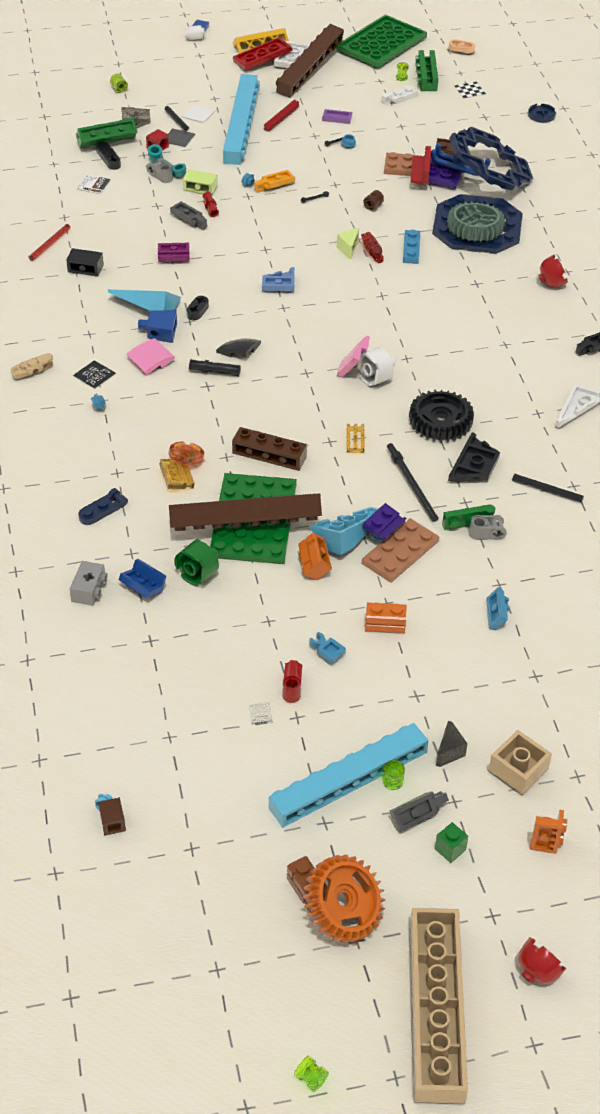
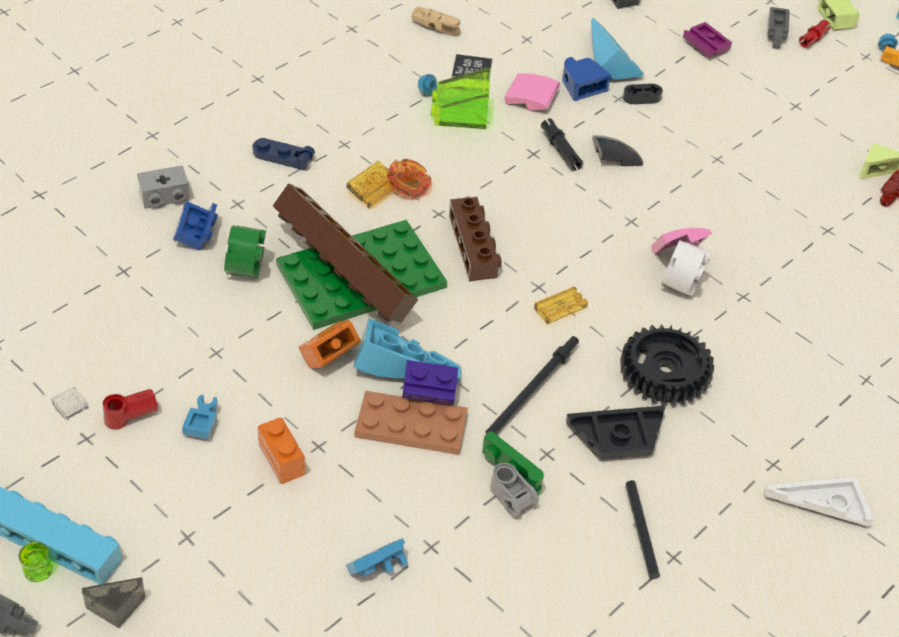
camera: 55 degrees right, 0 degrees up
(137, 389) = (462, 100): none -> clear neon green slope
(279, 281) = (751, 135): medium blue wing -> none

